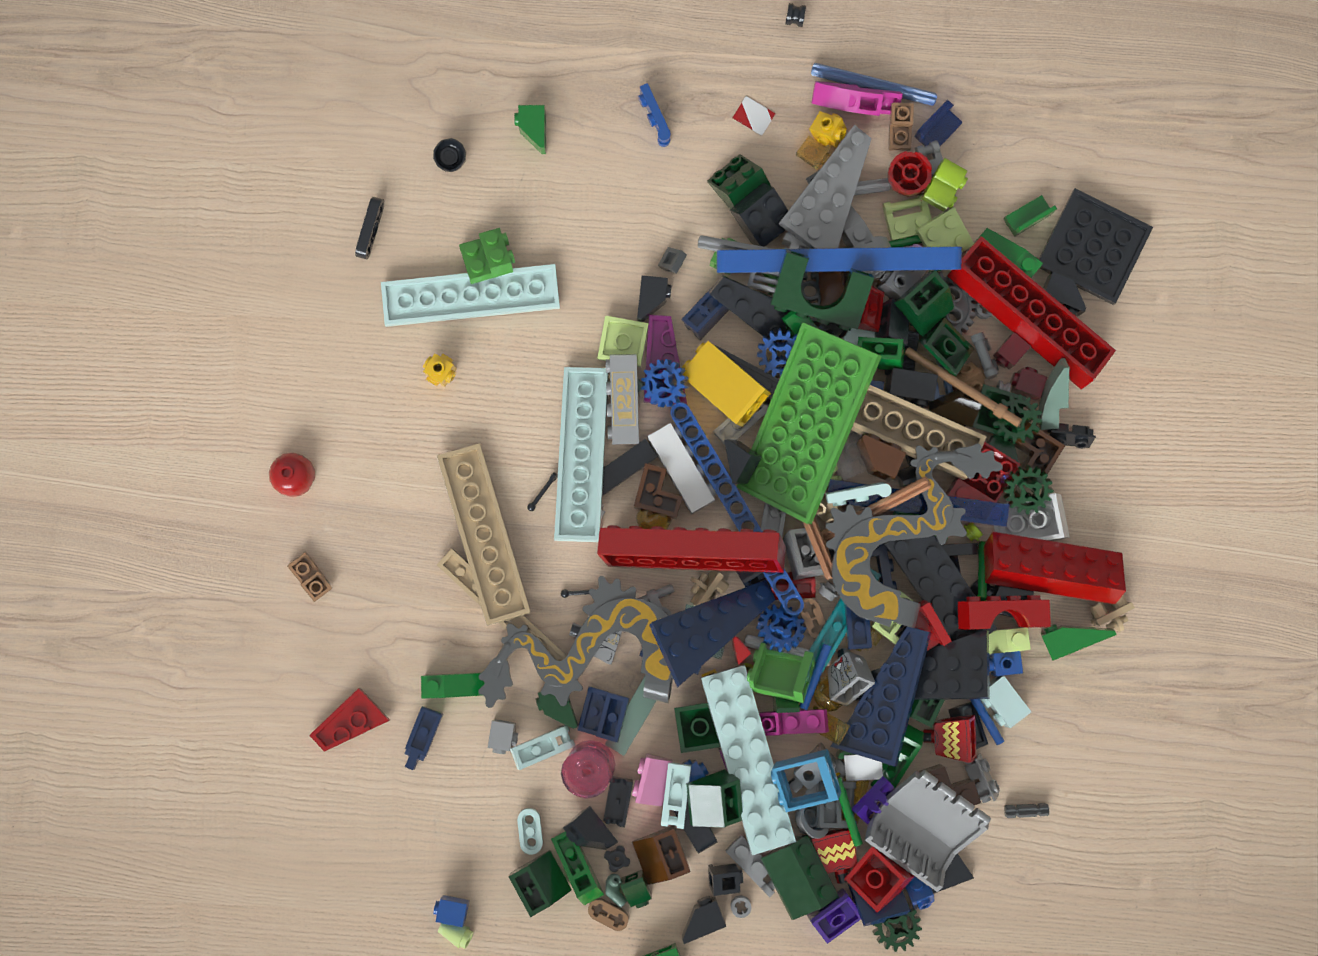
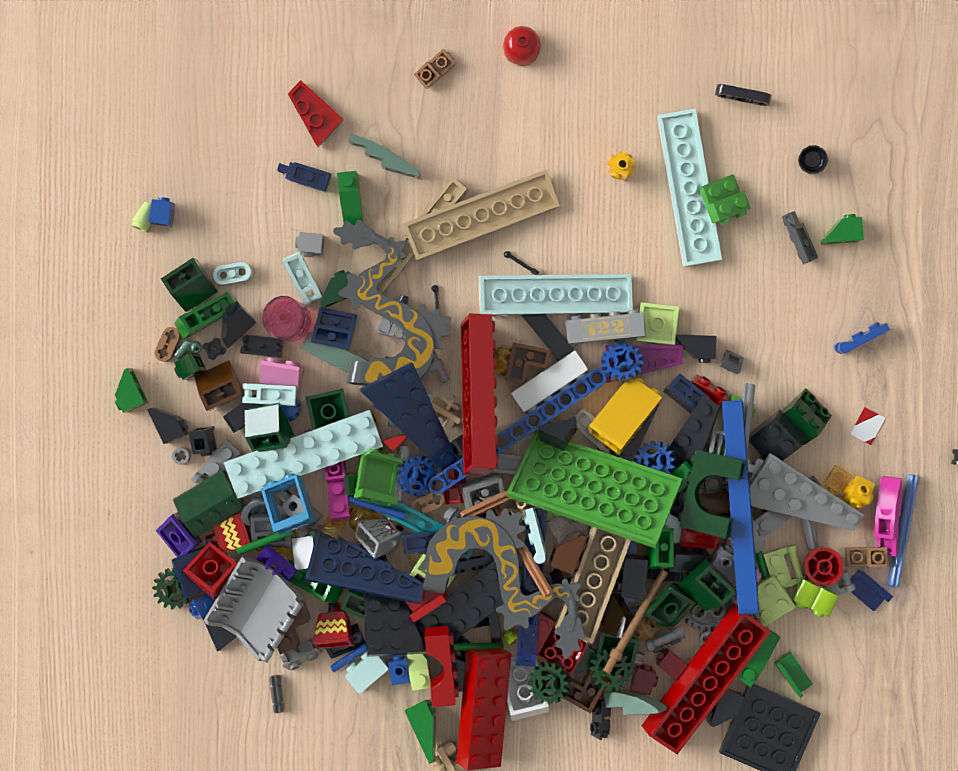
camera: 85 degrees right, 5 degrees up
(412, 635) = (389, 160): none -> sand green slope
(537, 175) = (800, 238): none -> dark grey hinge
(707, 281) = (715, 393): none -> red hinge

